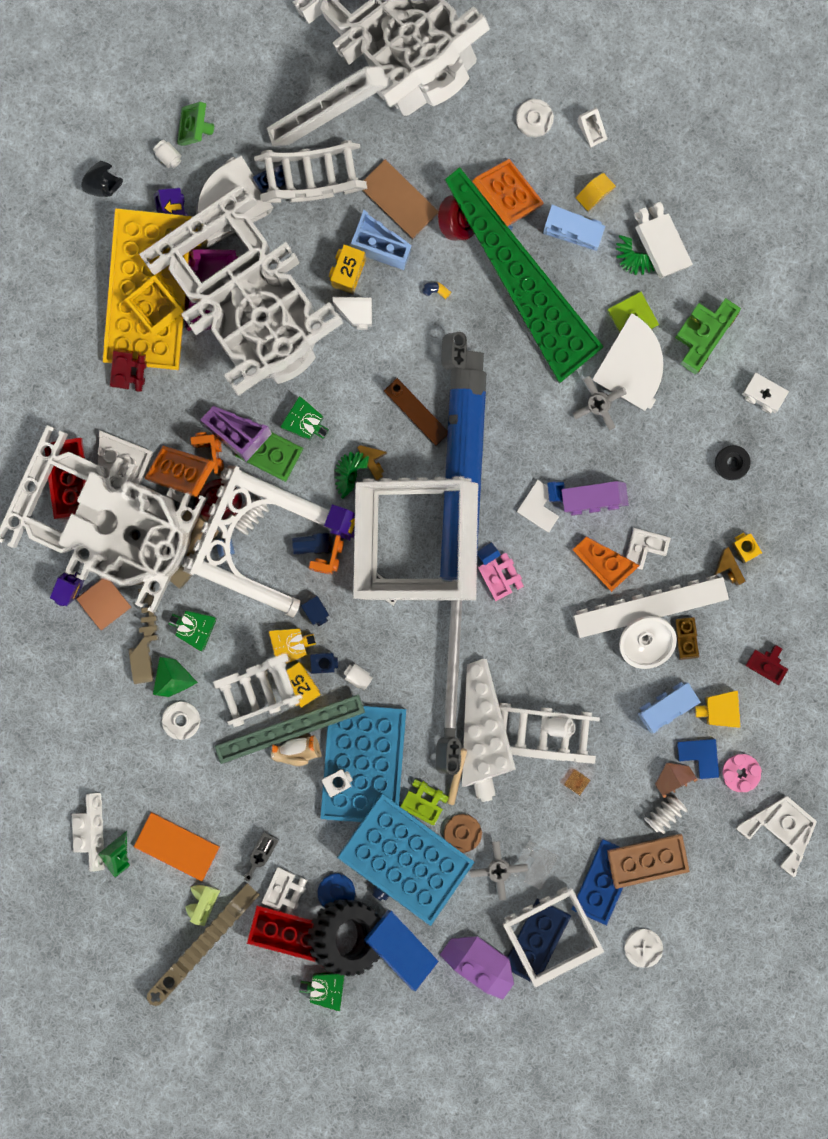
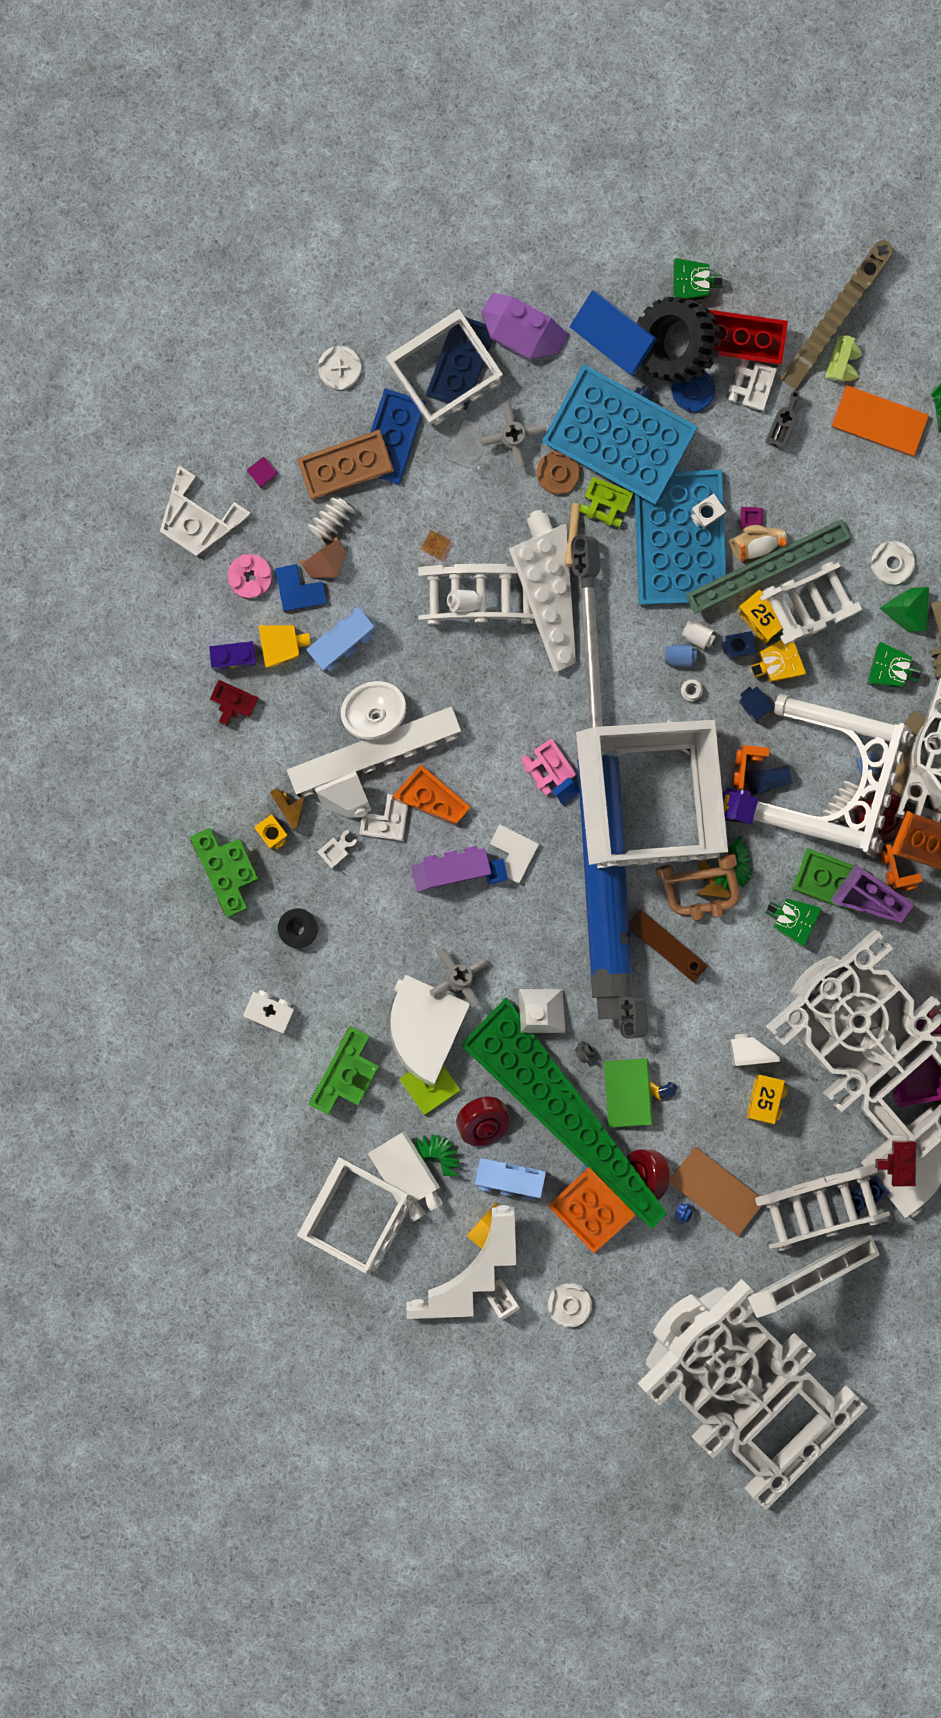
camera: 170 degrees right, 0 degrees up
(240, 193) = (900, 1163): none -> dark red hinge
(299, 774) = (750, 516): none -> magenta tile
(358, 469) = (697, 910): none -> medium nougat bar
(369, 623) = (691, 683): none -> white plate
(375, 660) = (680, 655): none -> medium blue brick
(380, 242) = (733, 1134): light blue wedge -> none
(429, 183) = (683, 1213): none -> blue plate
(464, 290) = (628, 1092): none -> bright green tile
(497, 328) = (585, 1052): none -> dark grey plate
(530, 367) = (541, 1011): none -> white slope
(591, 279) = (483, 1121): none -> dark red wheel
(630, 134) = (456, 1296): none -> white arch
(679, 570) = (344, 796): none -> white slope
(687, 638) = (328, 721): pearl gold slope -> none
(694, 525) = (334, 851): none -> white plate
(721, 863) = (262, 472): none -> magenta tile
(738, 224) = (323, 1200): none -> white window
(764, 704) = (232, 655): none -> dark purple brick
(789, 519) = (226, 869): none -> bright green piece

